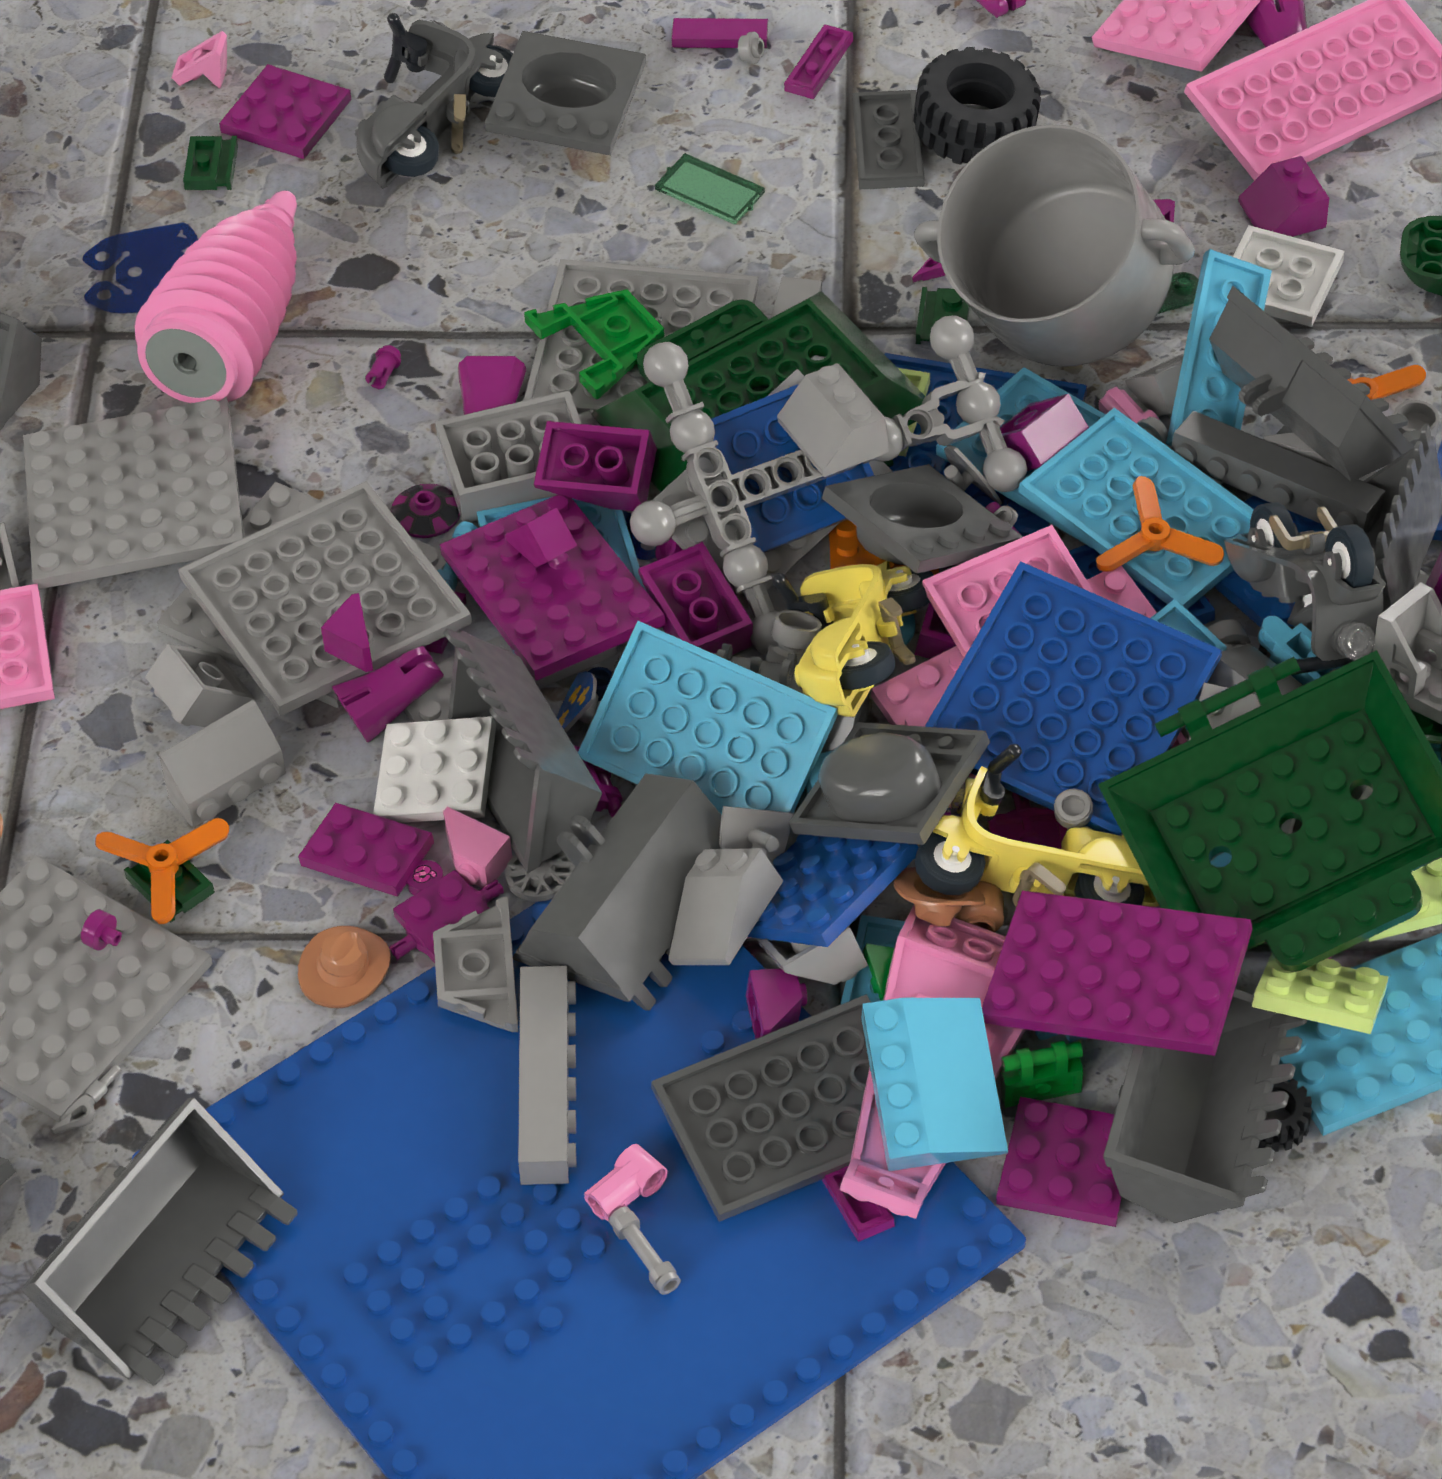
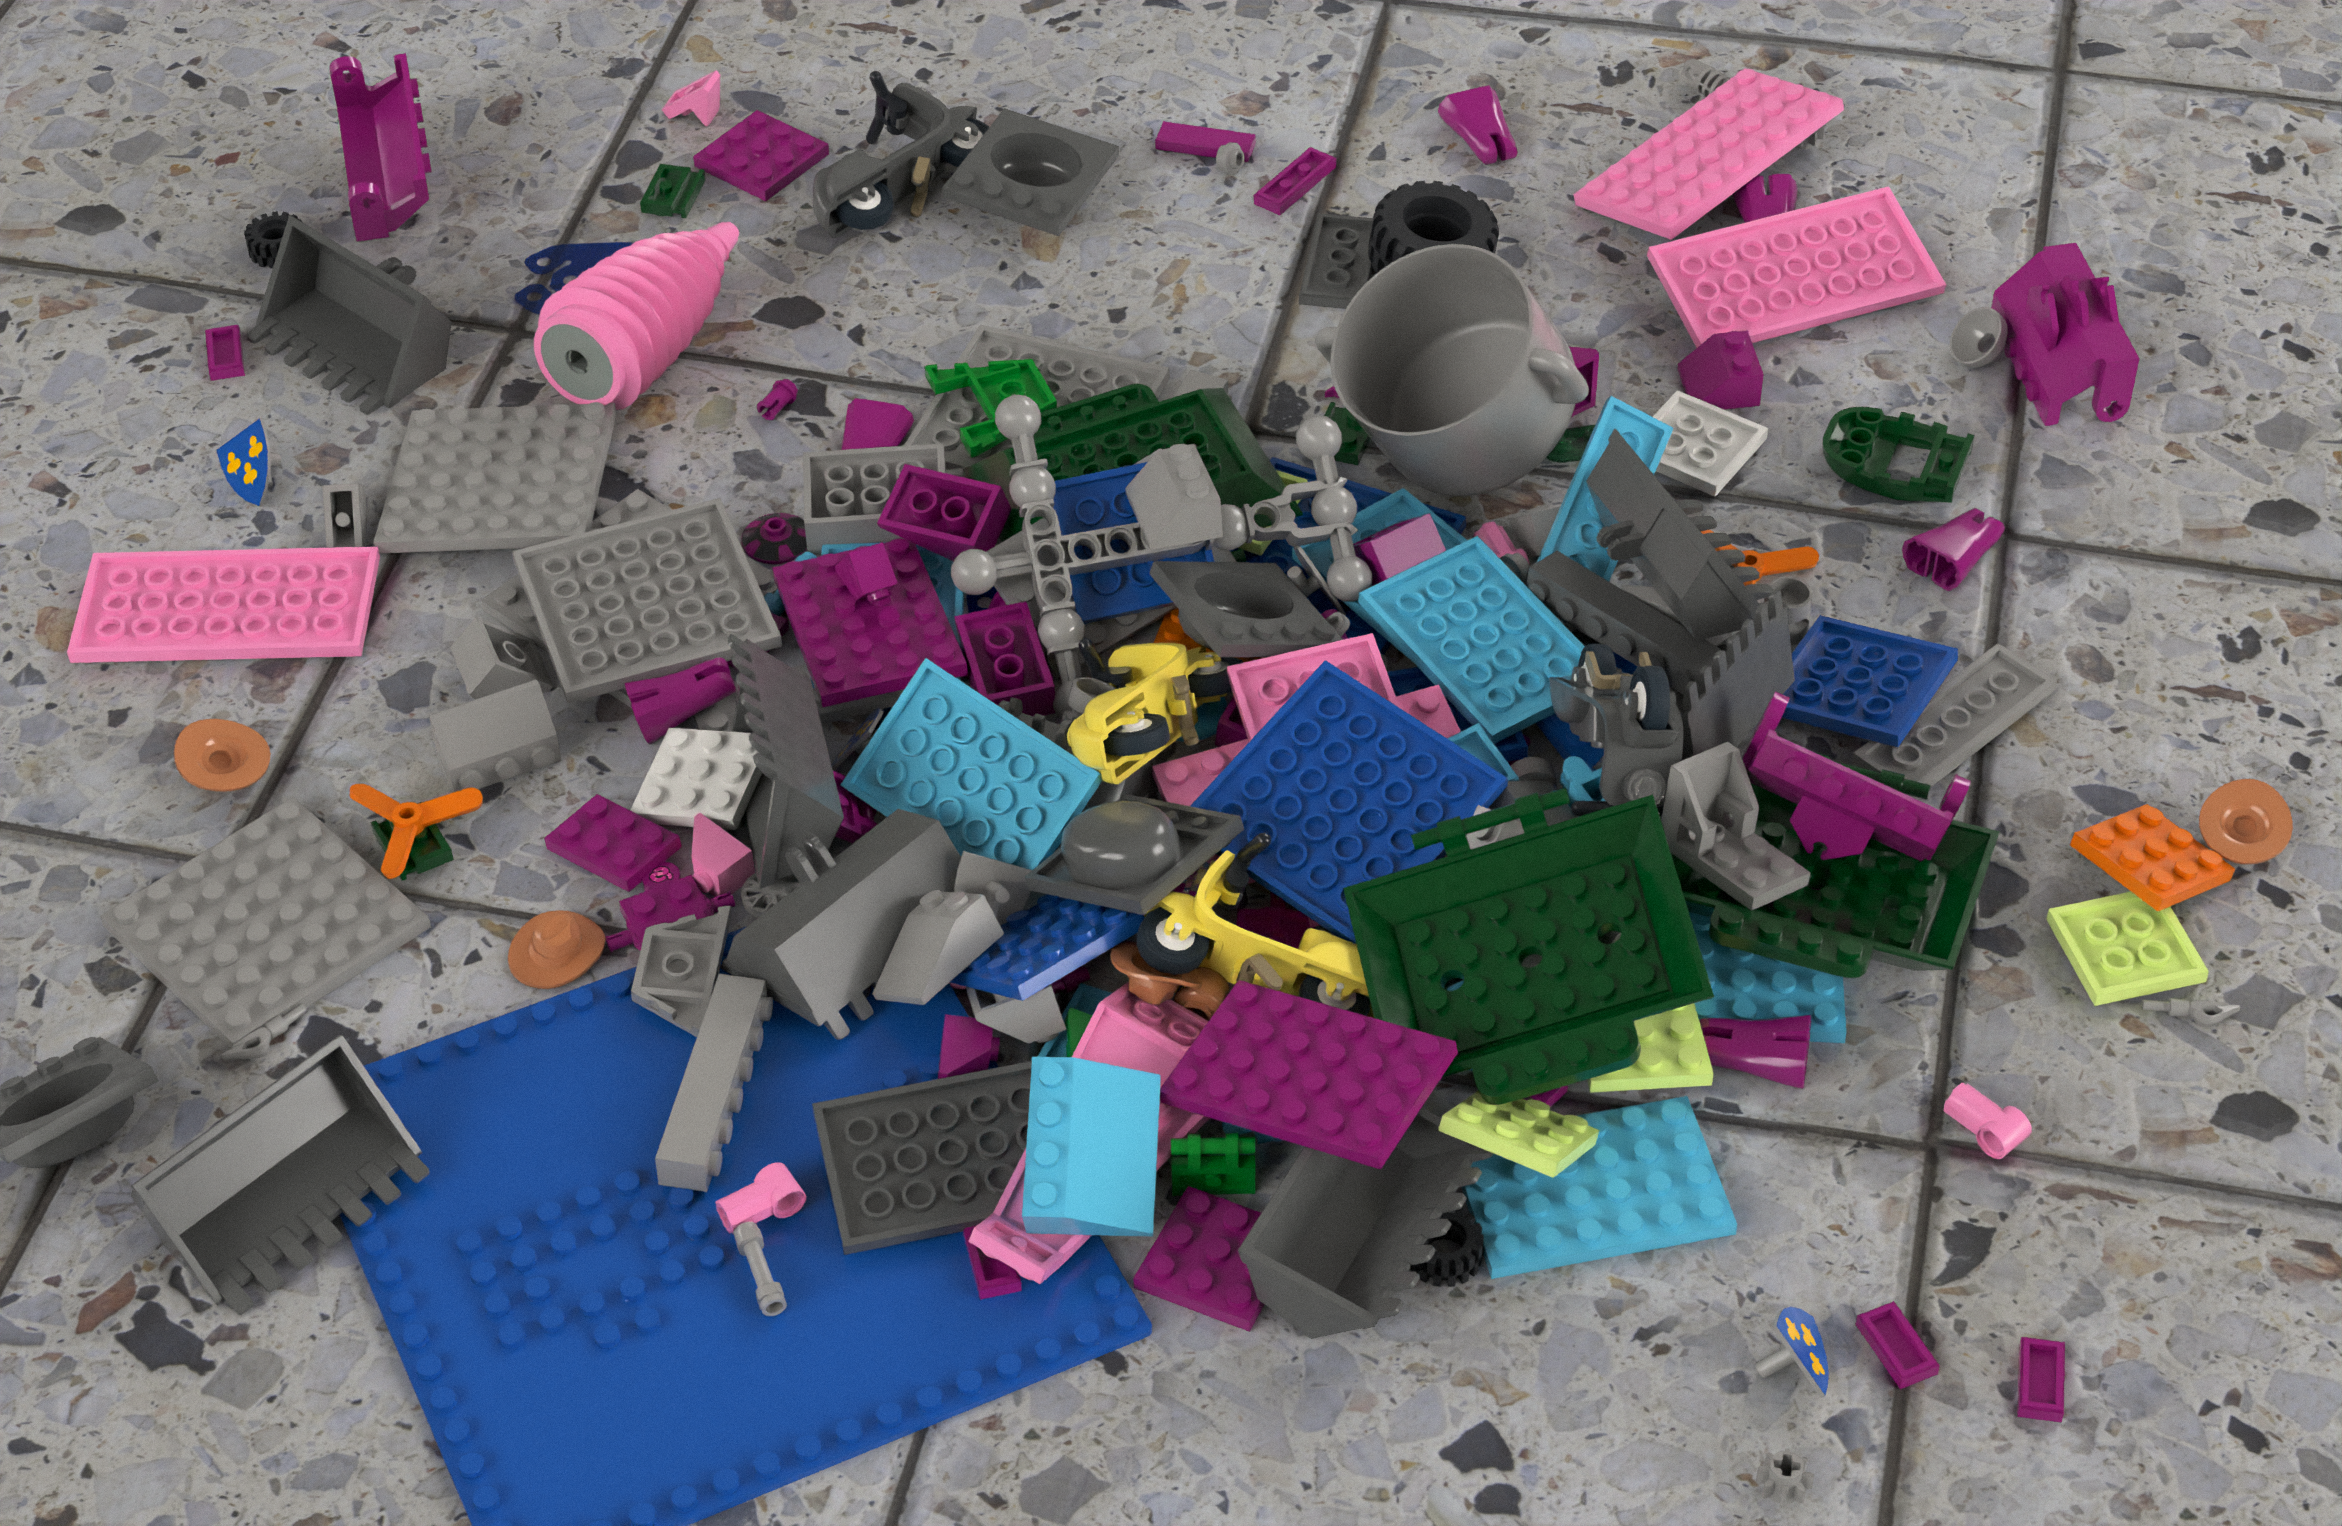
camera: 10 degrees right, 5 degrees down
(100, 930) = (324, 873): magenta tile -> none
(346, 635) = (651, 634): magenta slope -> none
(709, 188) = (1150, 282): clear green piece -> none
(1073, 808) = (1316, 910): light grey tile -> none
(1157, 535) = (1484, 663): orange piece -> none

